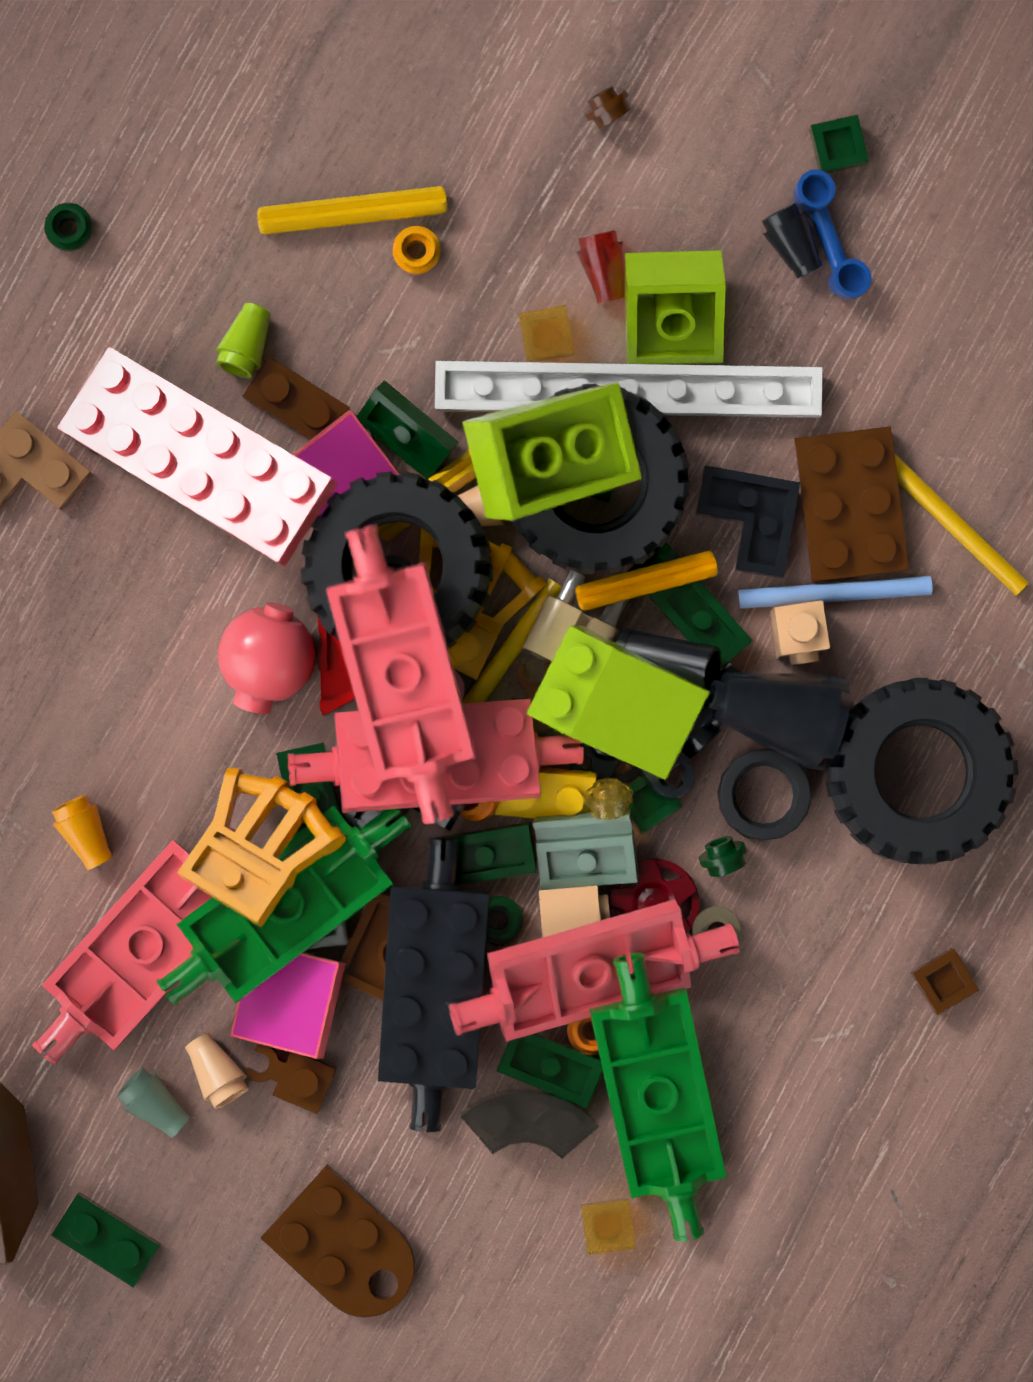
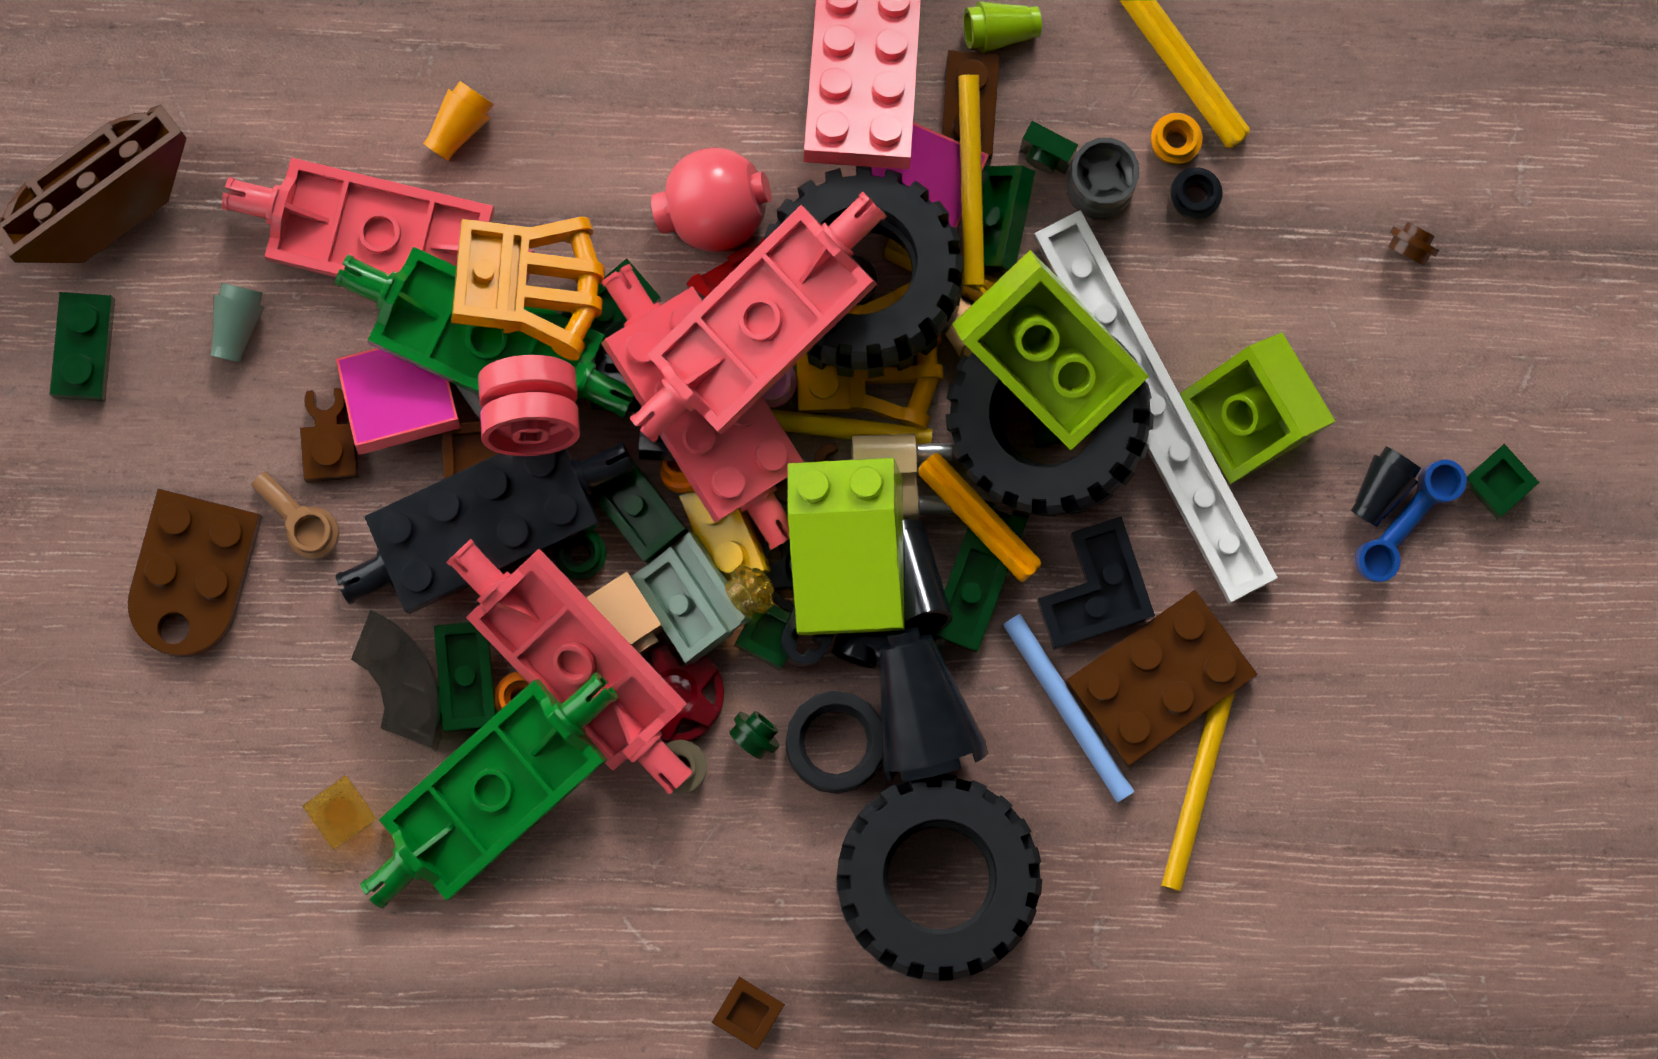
camera: 65 degrees right, 5 degrees down
(216, 1072) = (294, 363): light nougat cone -> none
(362, 1131) = (310, 530): none -> medium nougat plate
(364, 436) = (971, 180): none -> yellow bar
(367, 900) = (528, 405): none -> coral wheel
(370, 360) = (1047, 149): none -> dark green plate
(420, 328) = (1102, 178): none -> dark grey wheel
(474, 244) = (1199, 178): none -> black plate
(546, 334) = (1163, 301): clear yellow plate -> none
(603, 264) = (1261, 317): clear red cone -> none
(800, 632) = (1010, 691): light nougat brick -> none

